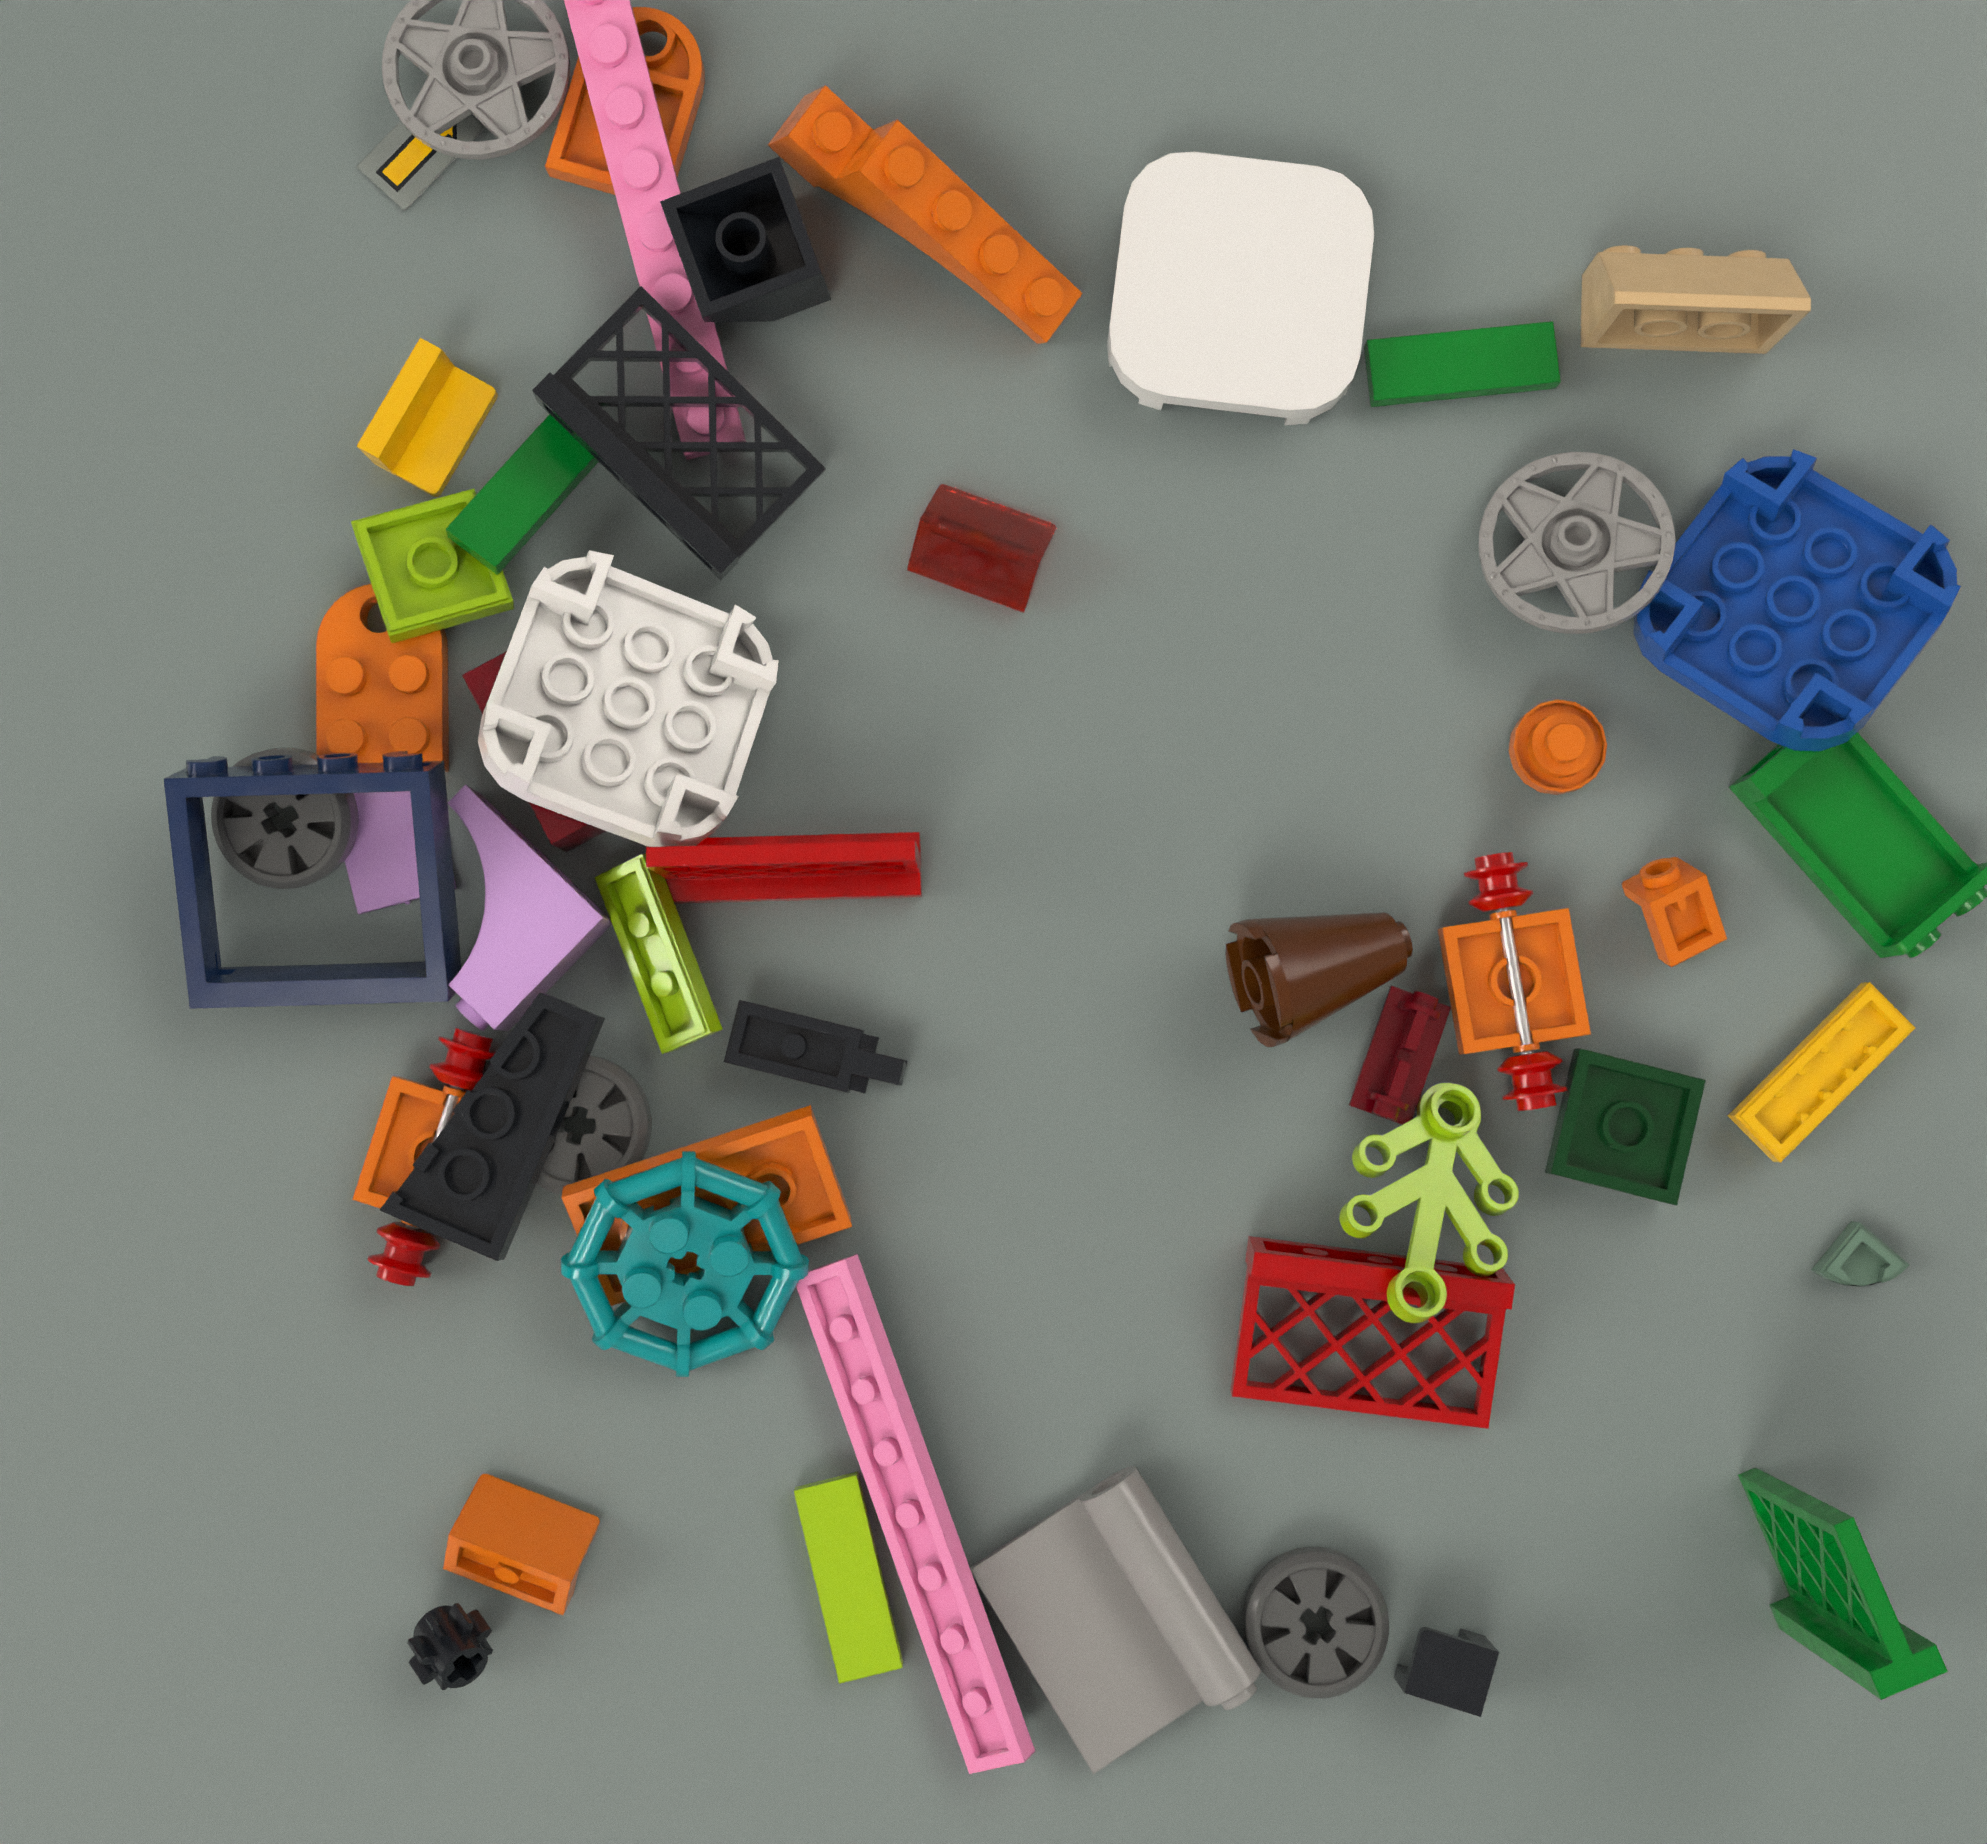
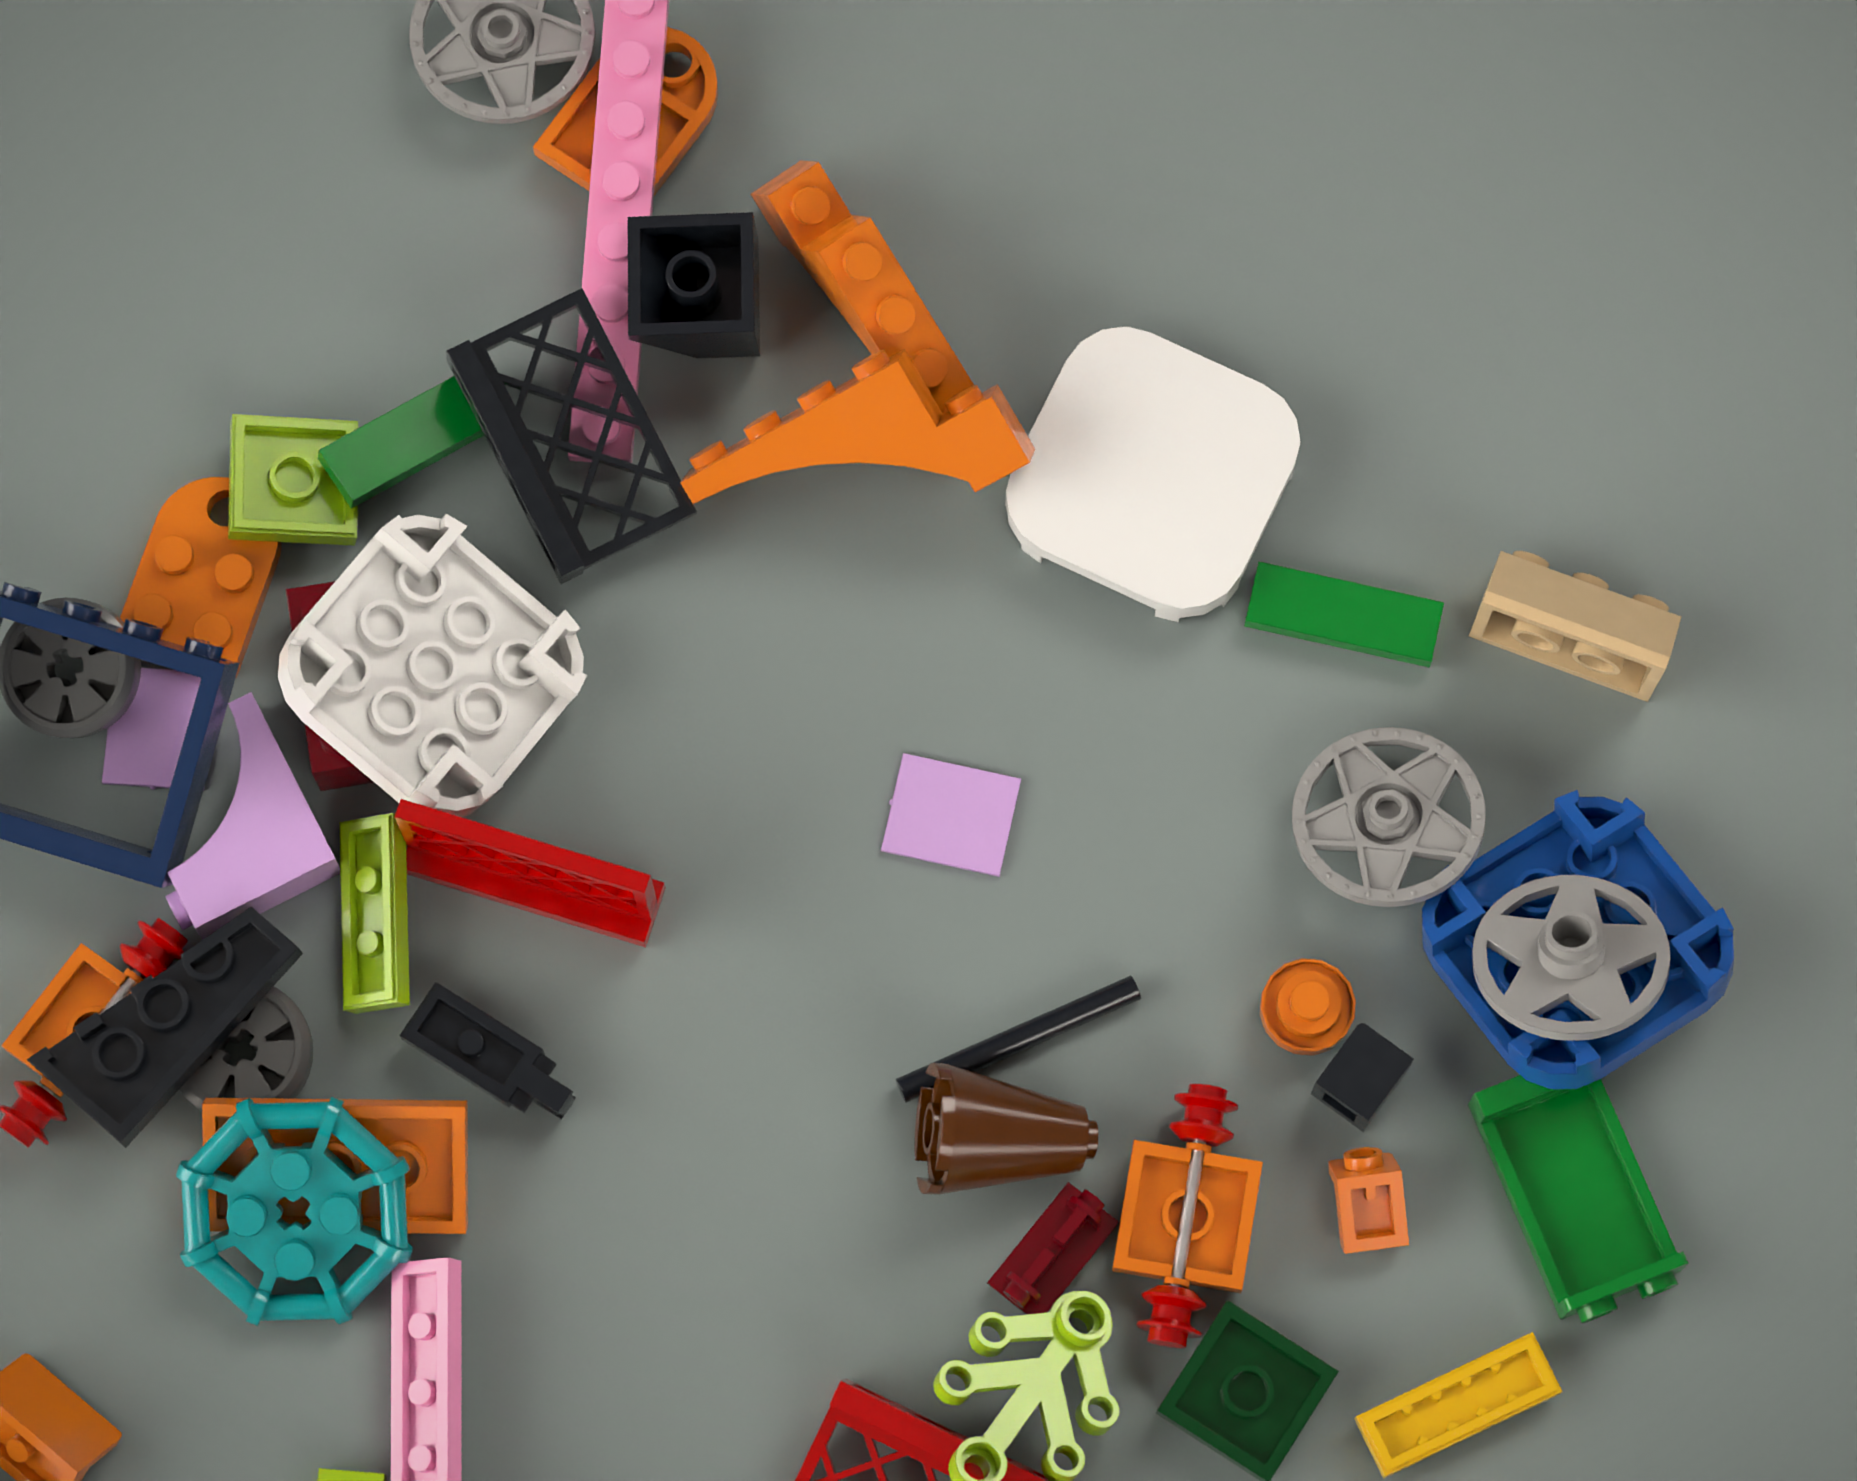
camera: 15 degrees right, 10 degrees down
(406, 166) = (402, 101): light grey sticker -> none
(427, 420) = (337, 344): yellow panel -> none
(964, 322) = (873, 419): none -> orange arch
(980, 547) = (819, 633): clear red panel -> none
(1161, 676) = (951, 815): none -> lavender window
(1301, 862) = (1027, 1034): none -> black bar
(1634, 797) = (1362, 1076): none -> black panel
(1805, 620) = (1571, 957): none -> light grey wheel

